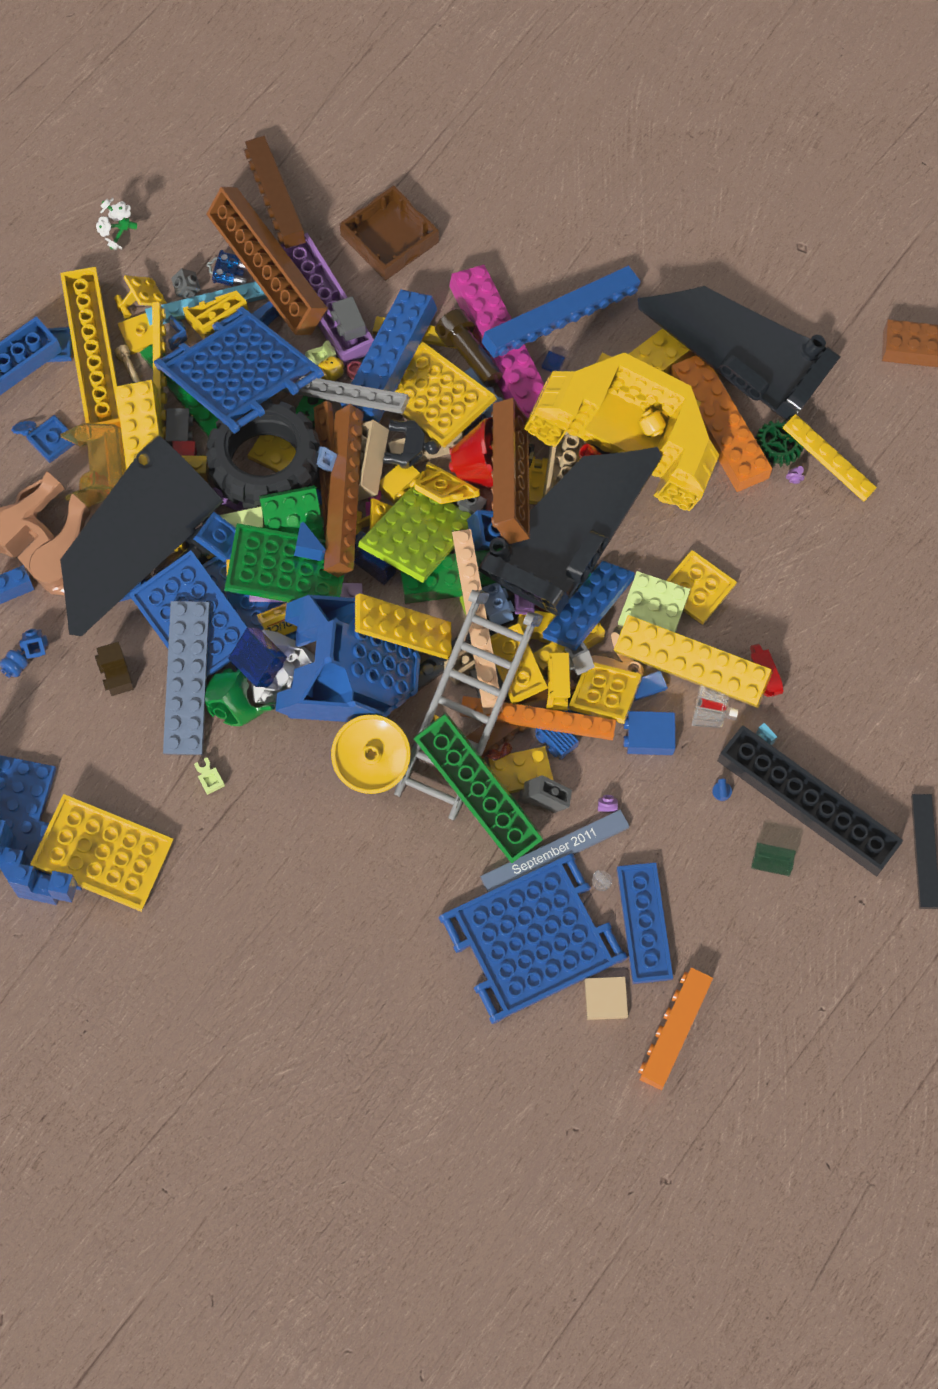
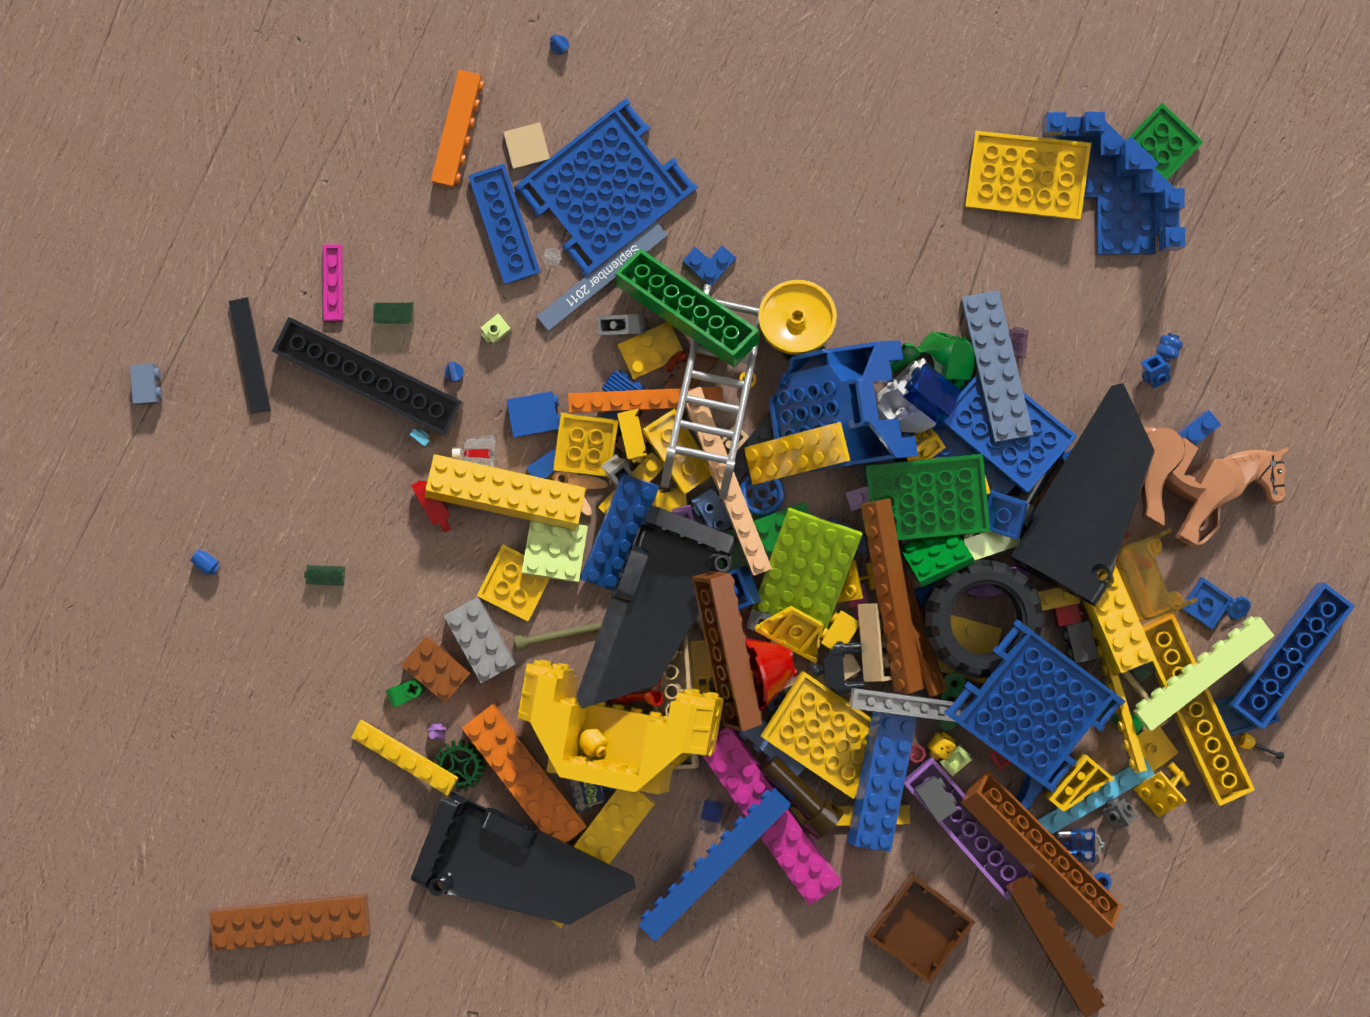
camera: 165 degrees right, 20 degrees up
(52, 318) = (1248, 742): none -> hinge
(75, 369) = (1203, 673): none -> yellowish green brick
(113, 665) = (1068, 362): dark brown brick -> none
(118, 212) = (1212, 872): white plant -> none
(157, 699) = (1019, 341): none -> clear purple bracket
(181, 332) = (1113, 762): blue bracket -> none
(209, 777) = (946, 274): yellowish green plate -> none
(213, 238) = (1107, 880): none -> blue plate
(308, 545) = (914, 523): blue slope -> none
(326, 459) = (918, 625): medium blue plate -> none
(442, 602) = (767, 509): none -> blue plate
(444, 835) = (712, 268): none -> blue plate
(551, 1095) = (559, 44): none -> blue plate
(608, 804) = (561, 335): medium lavender plate -> none
(673, 821) = (495, 329): none -> yellowish green brick
(700, 534) = (523, 642): none -> olive piece
(740, 543) = (480, 639): none -> light grey brick
(786, 526) = (436, 669): none -> dark orange brick
(820, 514) = (401, 693): none -> green piece
(830, 904) = (333, 283): none -> dark pink tile
(880, 632) = (325, 575): none -> clear green hinge

